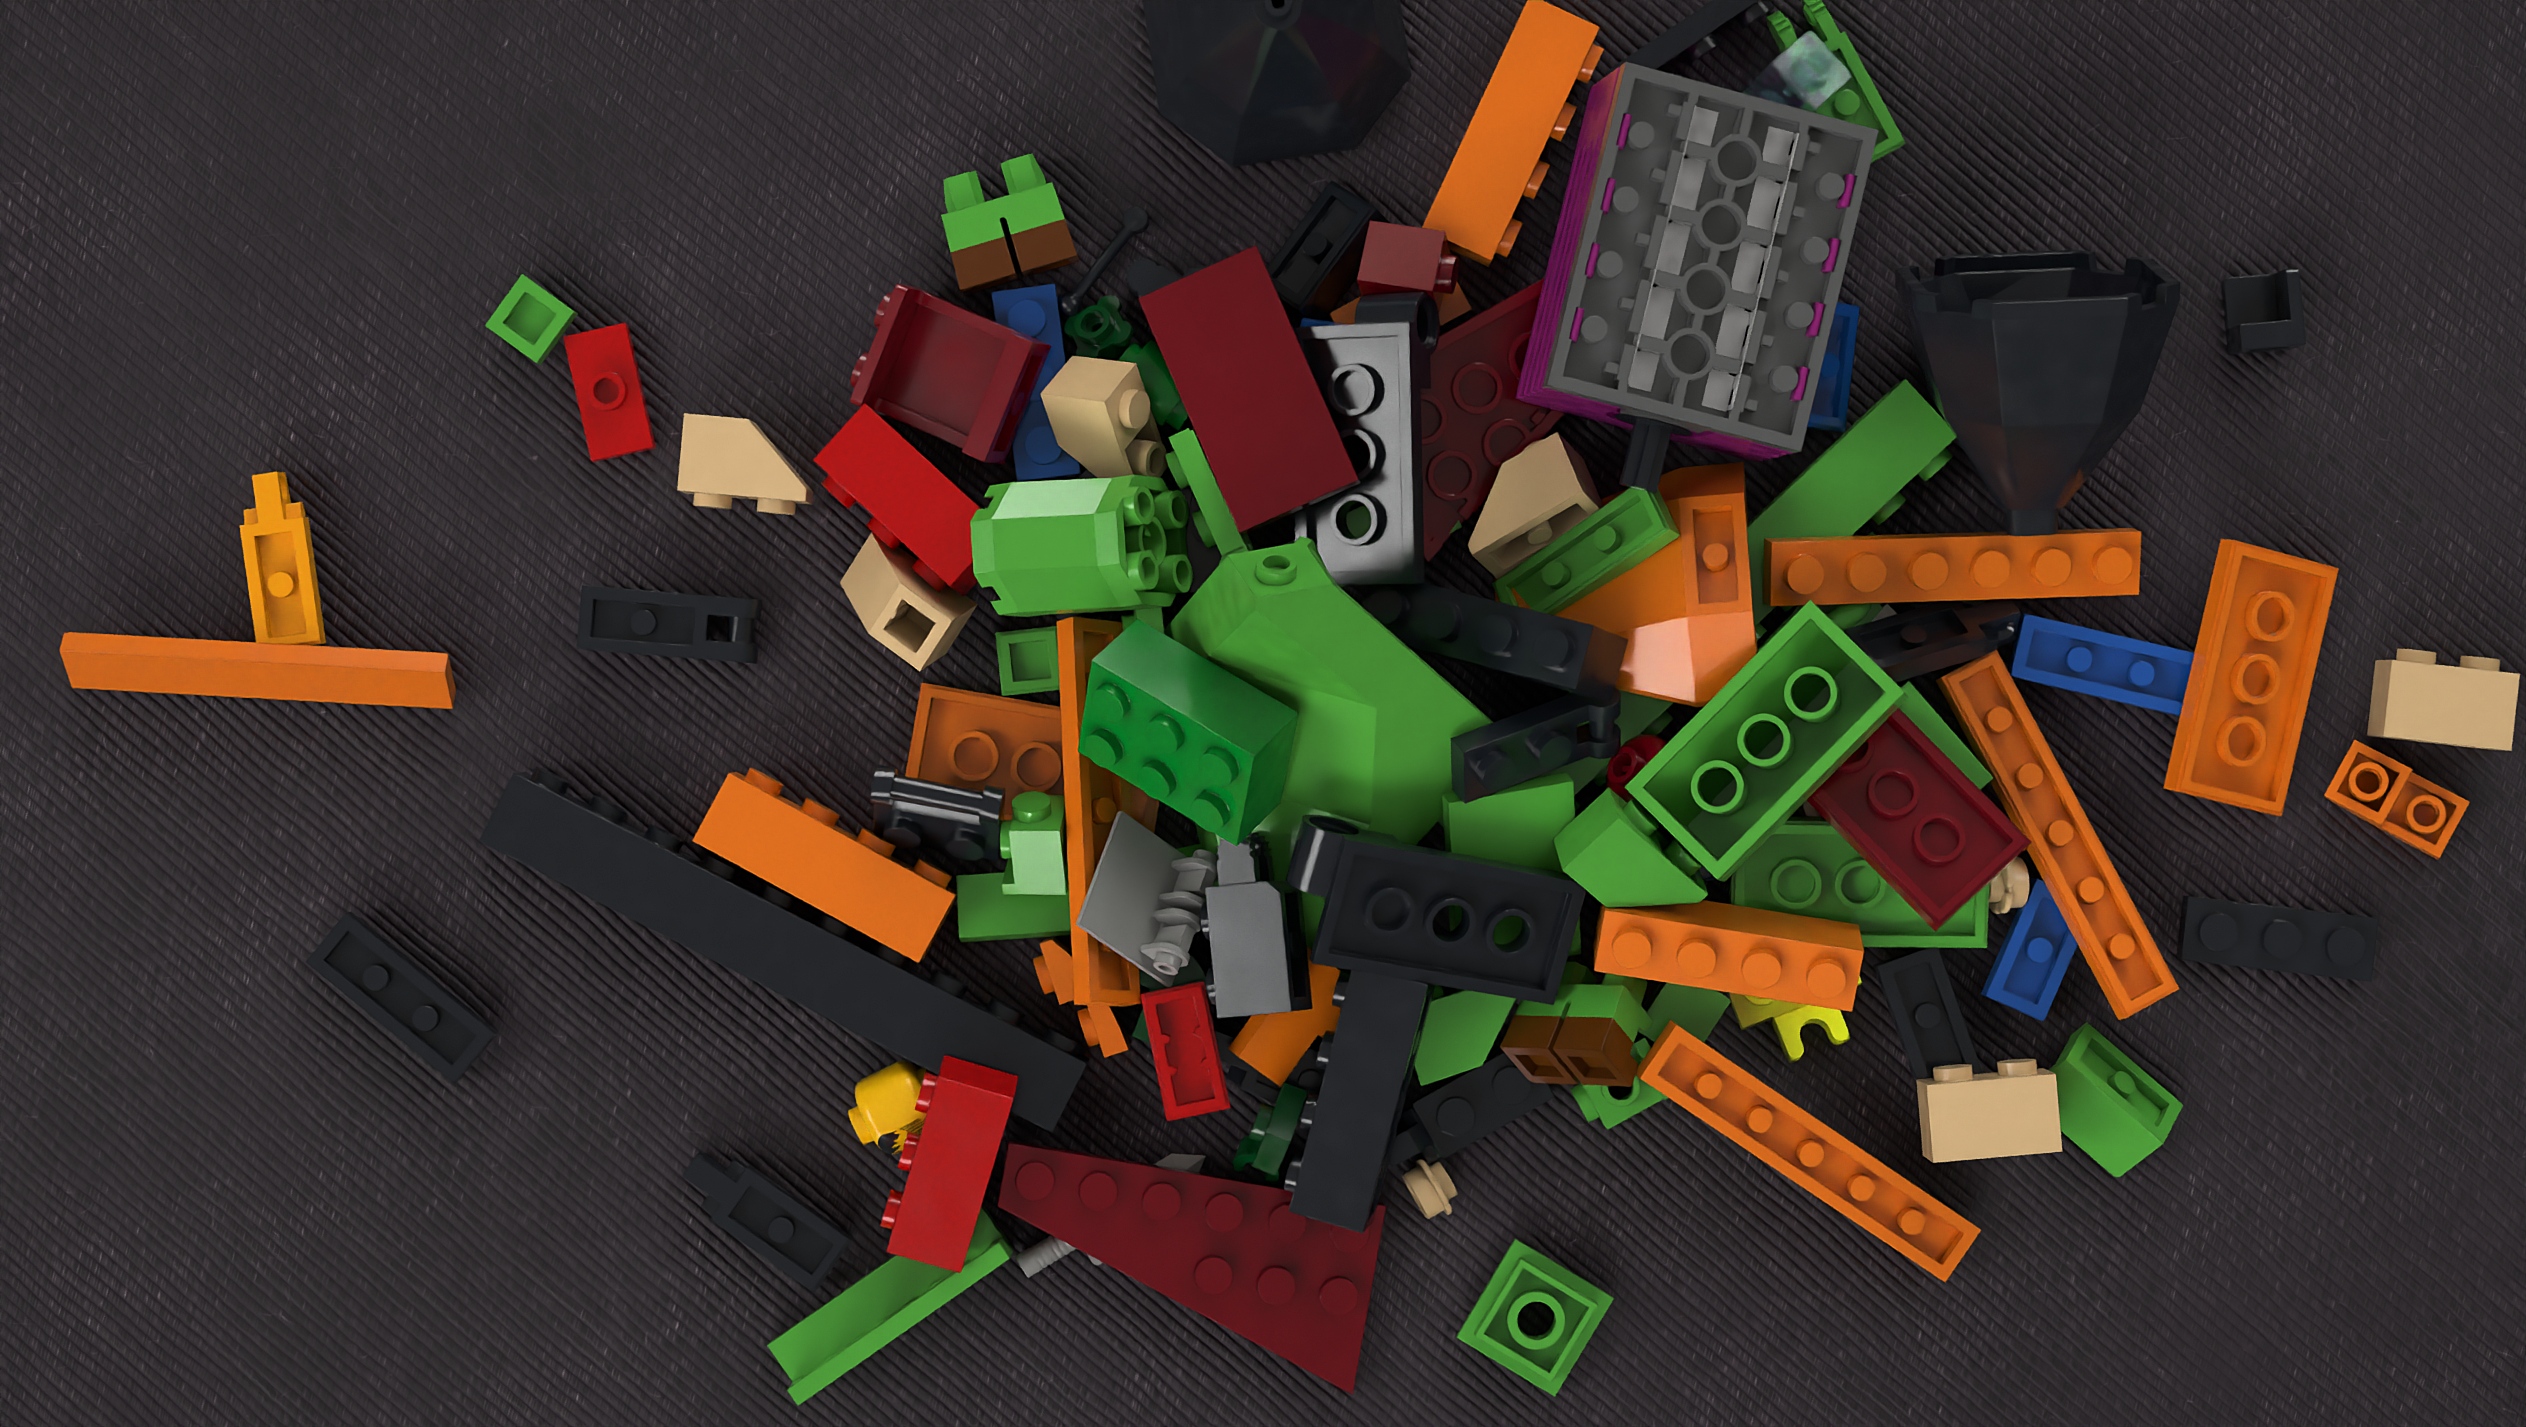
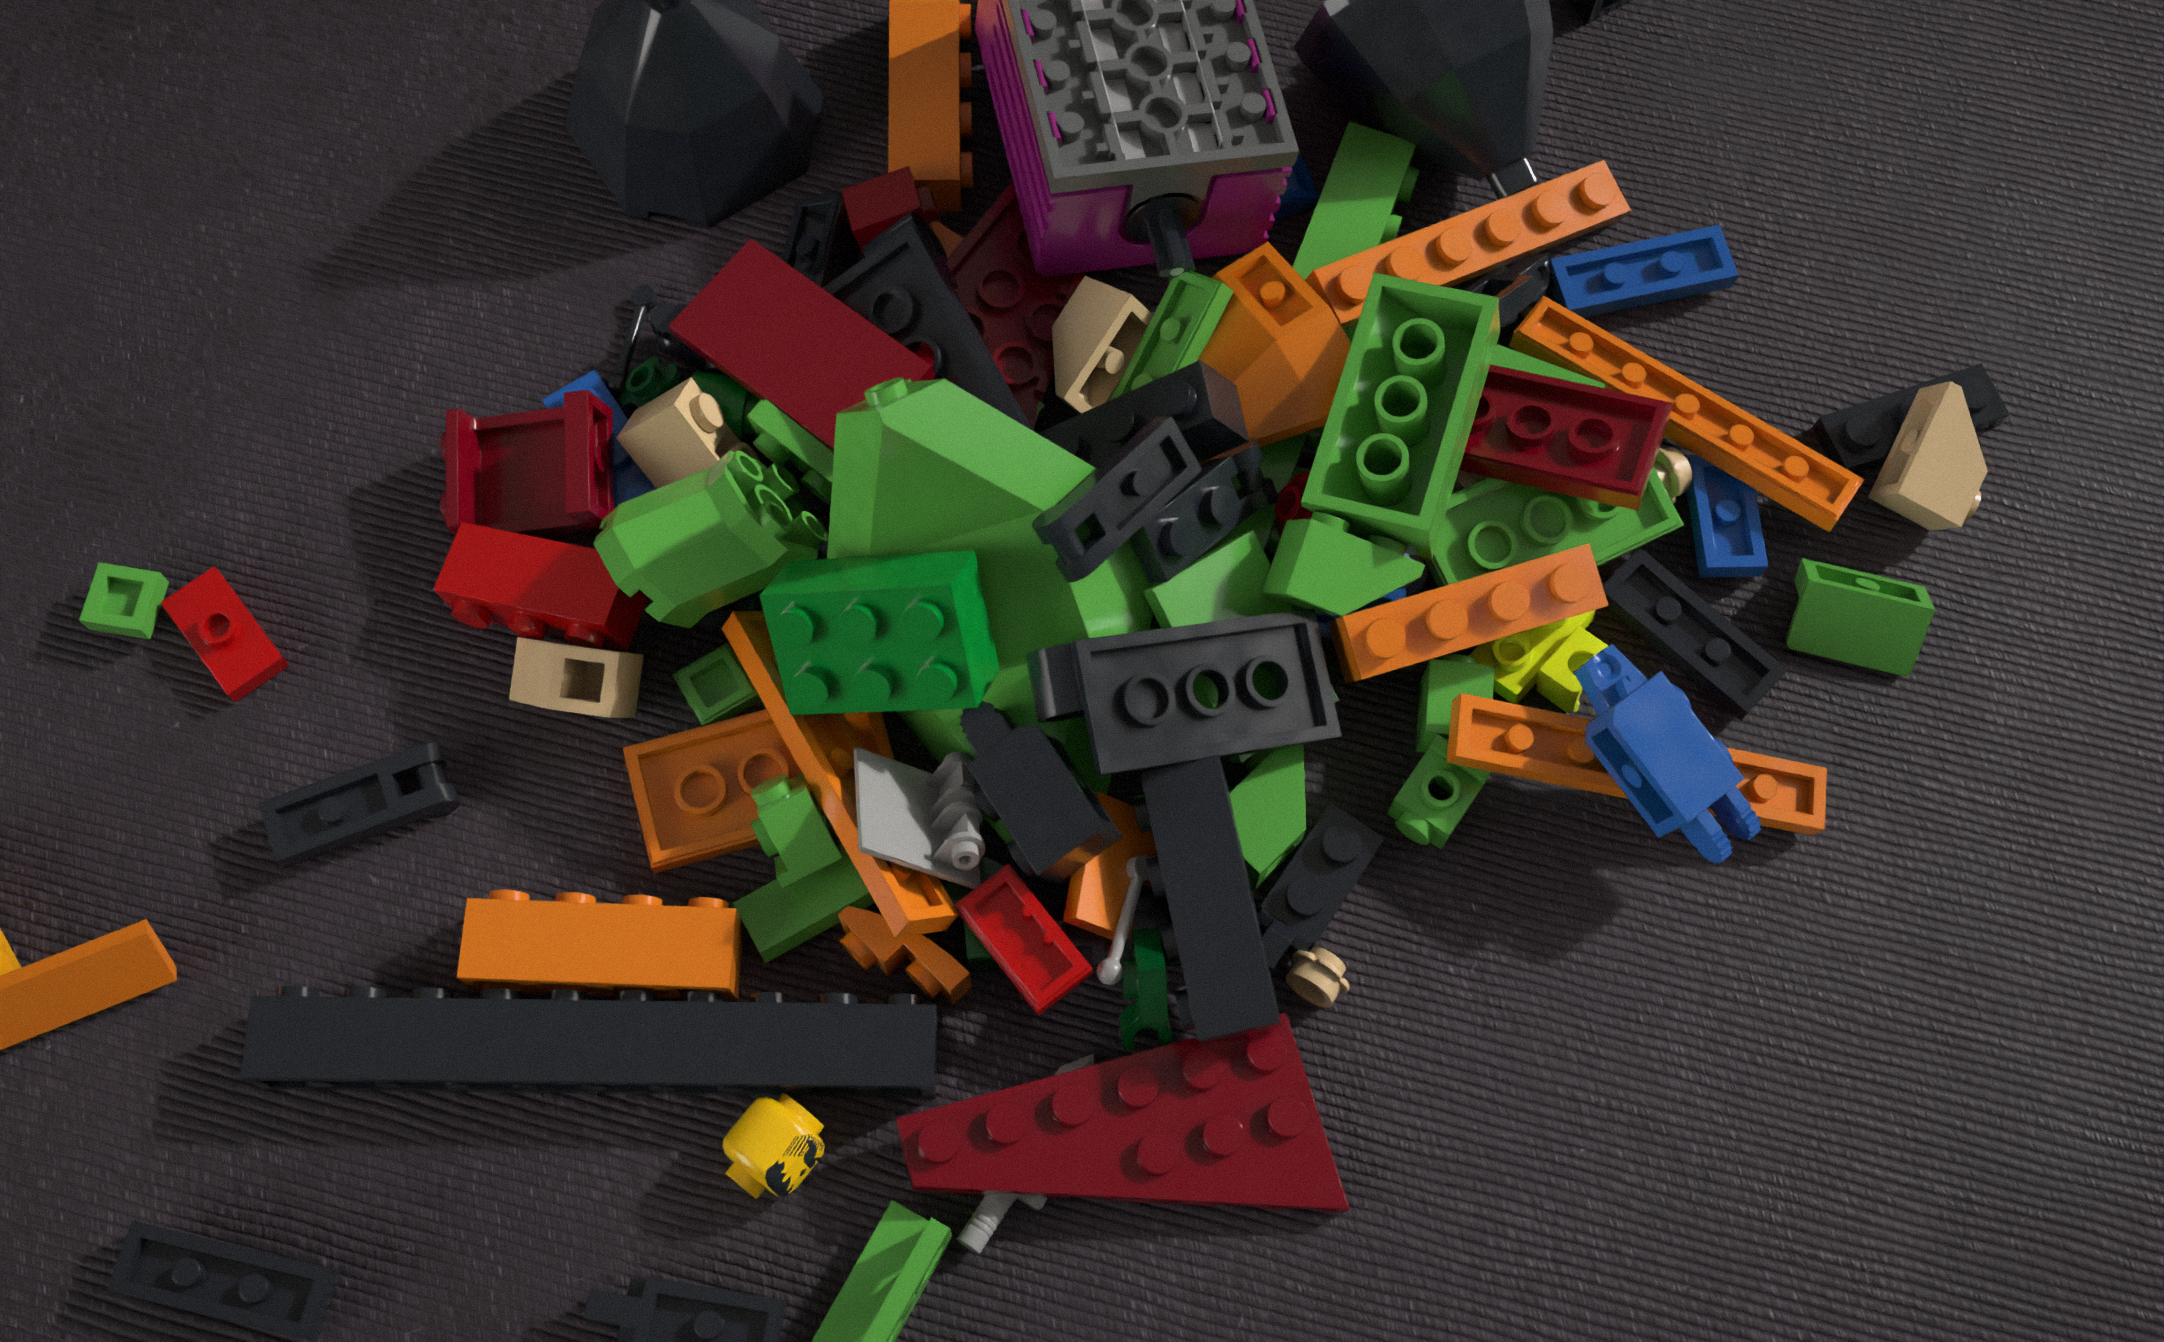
camera: 25 degrees left, 20 degrees down
(736, 460) = (366, 634): tan slope -> none
(937, 815) = (687, 844): black plate -> none
(948, 1162) = (844, 1162): red brick -> none
(977, 231) = (533, 342): hips -> none
(1247, 1110) = (1110, 969): none -> light grey hinge
(1451, 723) = (1118, 498): none -> black plate
(1527, 1278) = (1451, 1078): bright green piece -> none
(1583, 1033) = (1381, 753): reddish brown hips -> none
(1823, 1162) = (1664, 755): none -> blue hinge
(1989, 1112) = (1773, 653): tan brick -> none
(2251, 677) = (1760, 229): orange tile -> none
(2255, 1002) = (1934, 462): none -> tan slope
(2396, 799) = (1930, 275): orange slope -> none
(2443, 703) = (1921, 179): tan brick -> none

